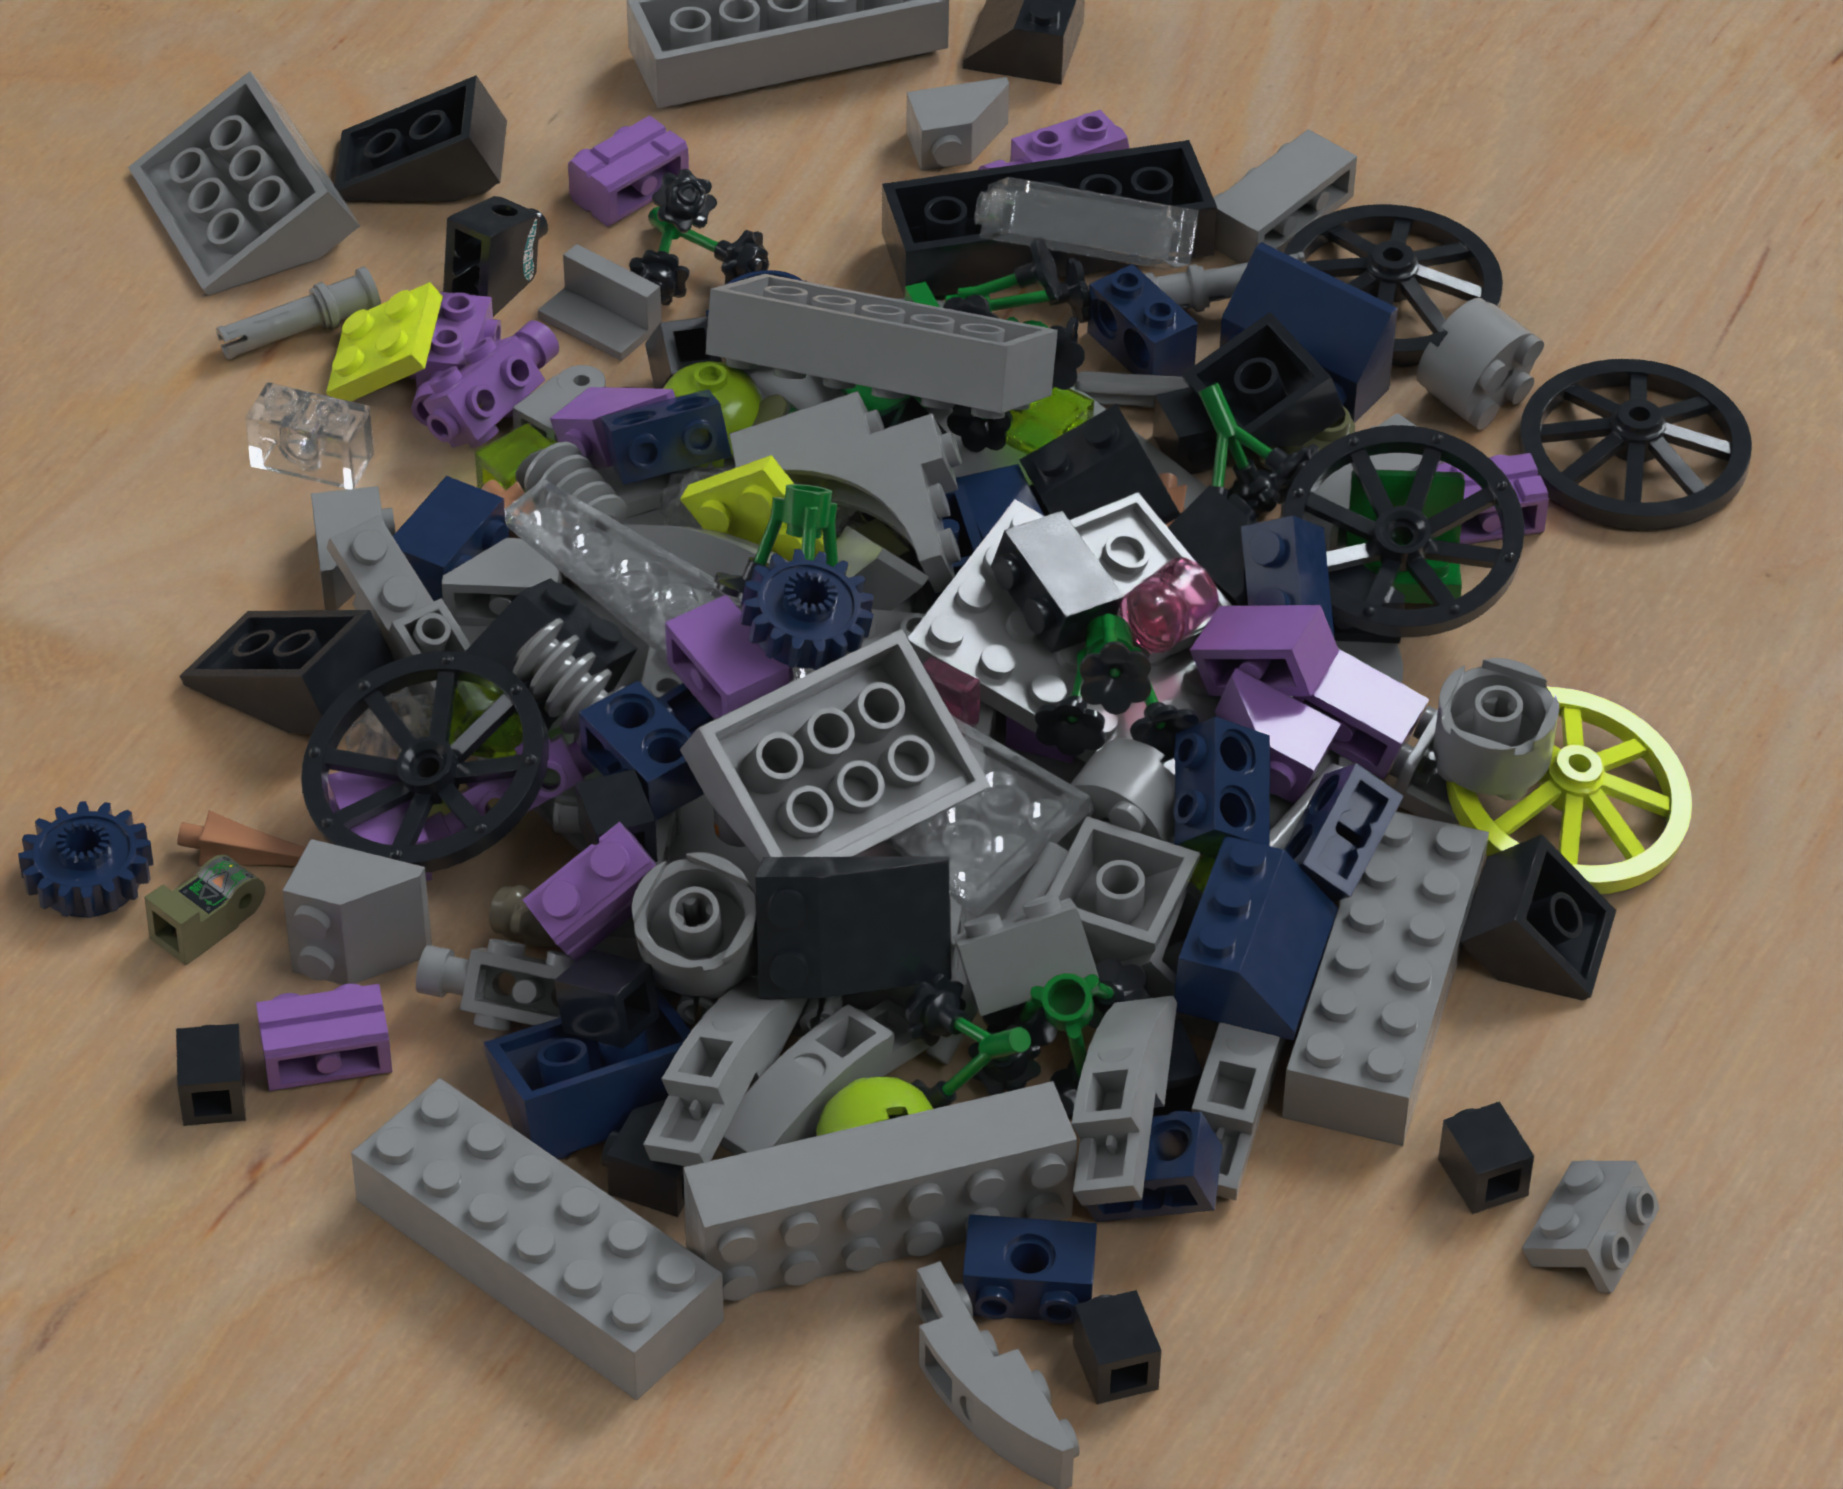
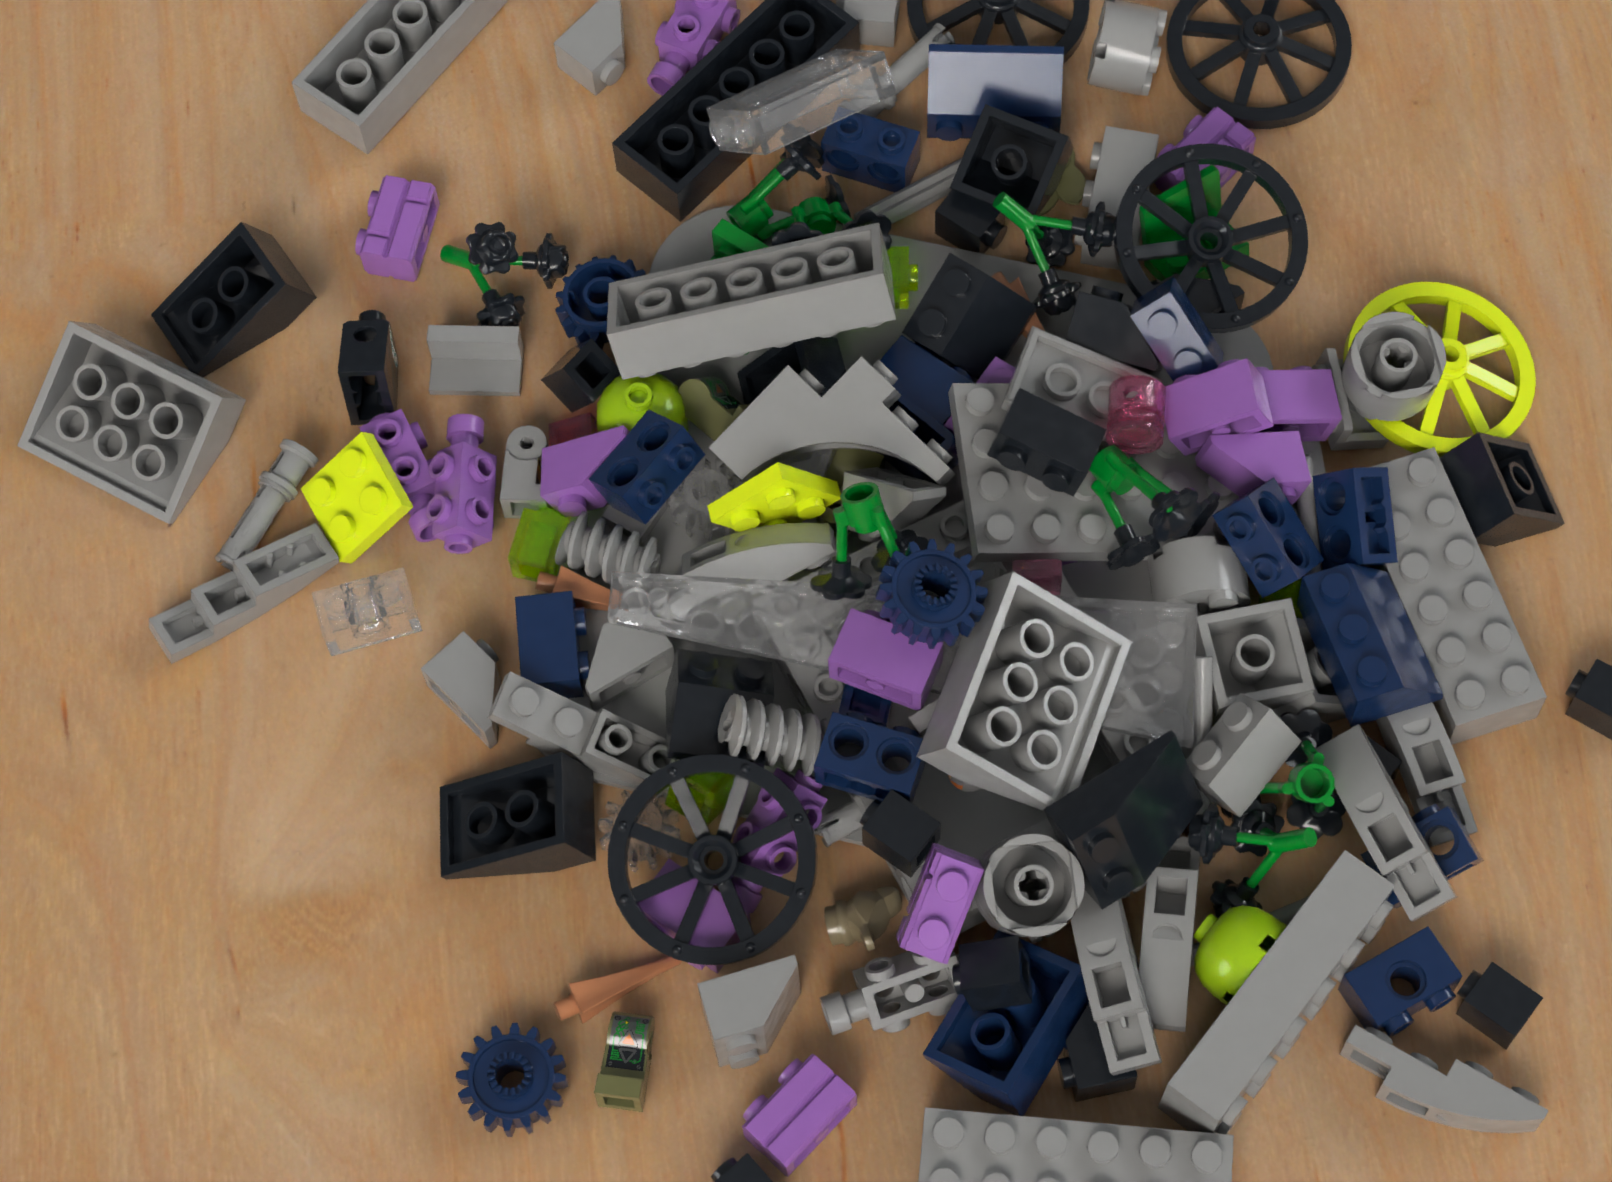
camera: 30 degrees left, 20 degrees up
(214, 372) = (242, 595): none -> light grey slope

